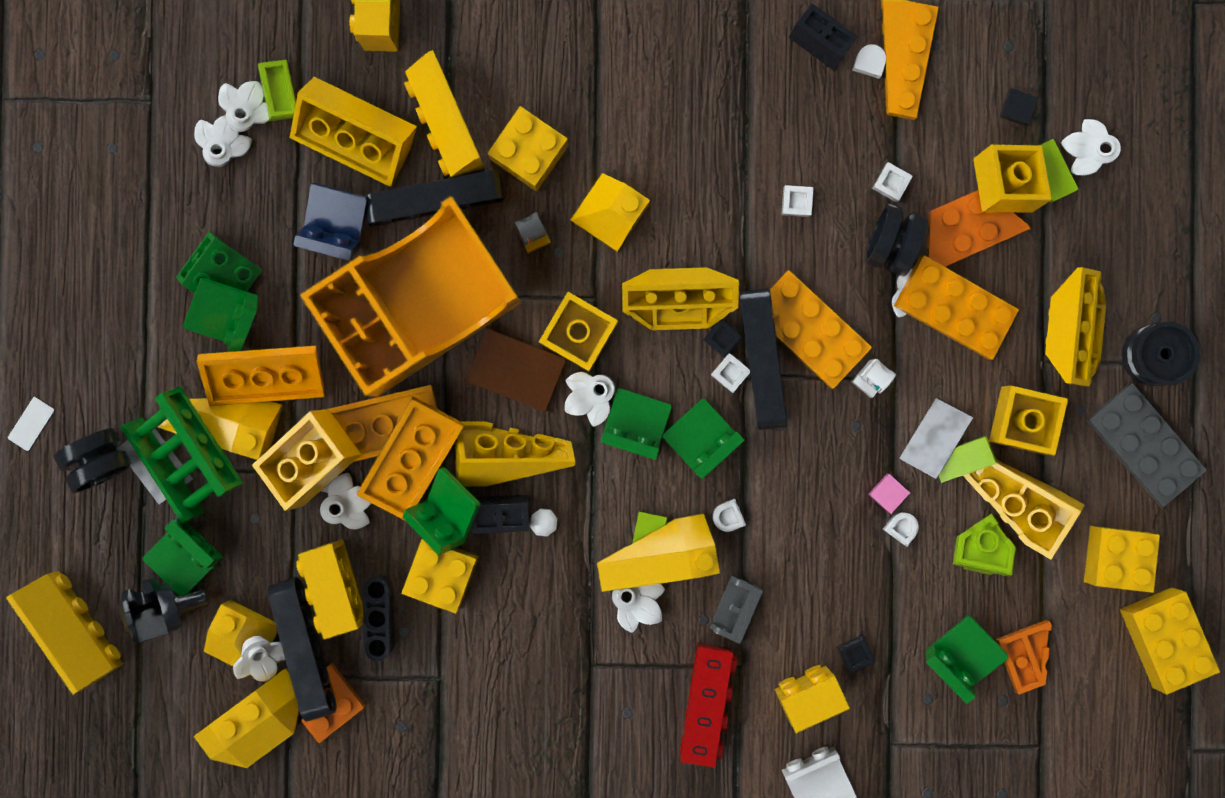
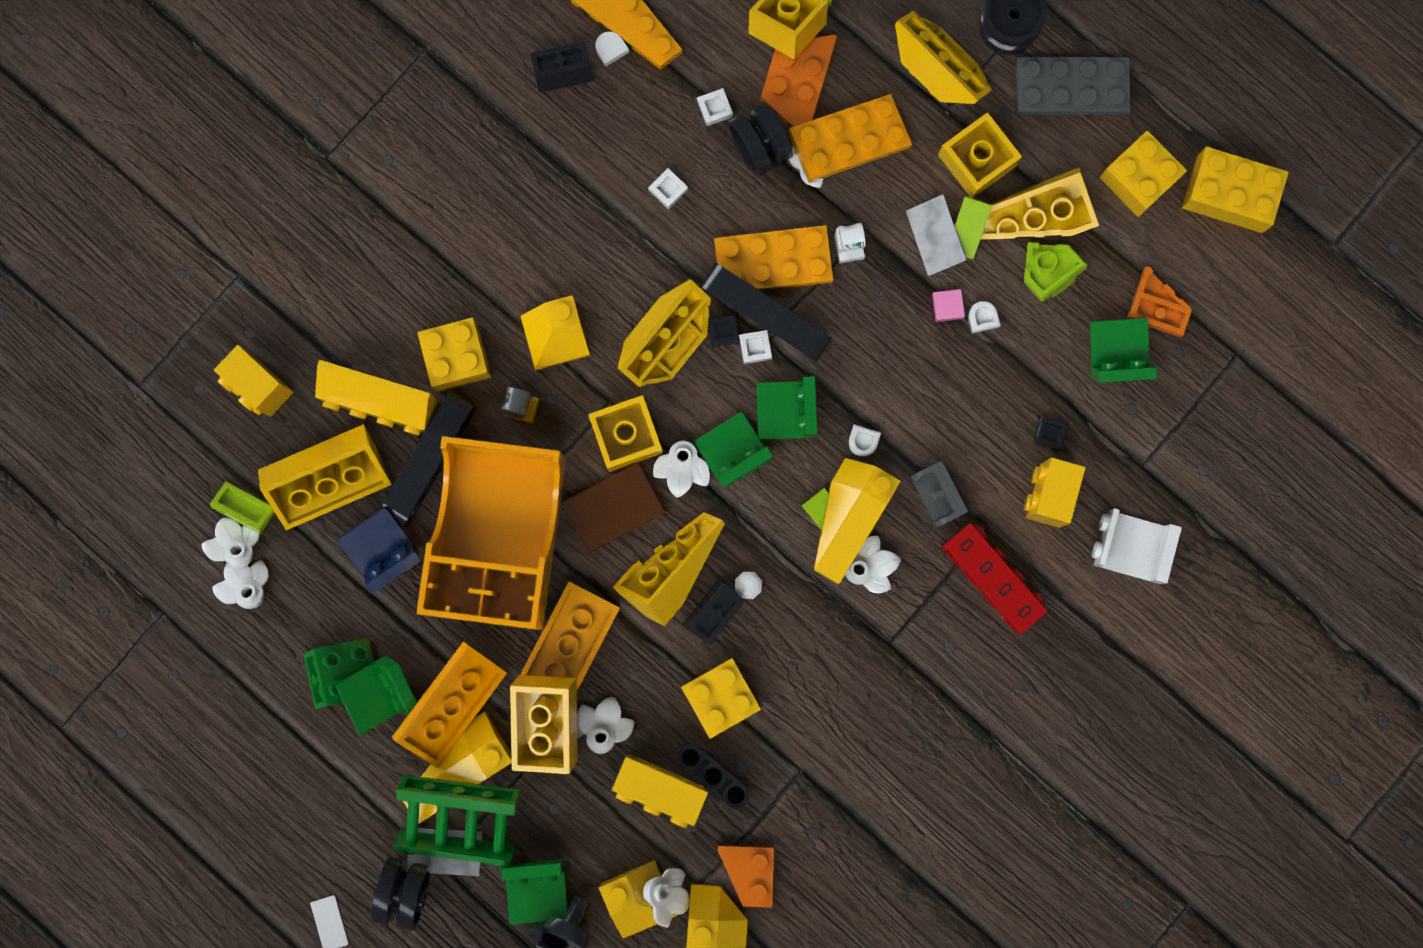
camera: 45 degrees left, 5 degrees down
(302, 649) = (687, 856): black beam -> none
(410, 458) = (612, 644): light orange plate -> none
(446, 514) = (677, 651): green bracket -> none

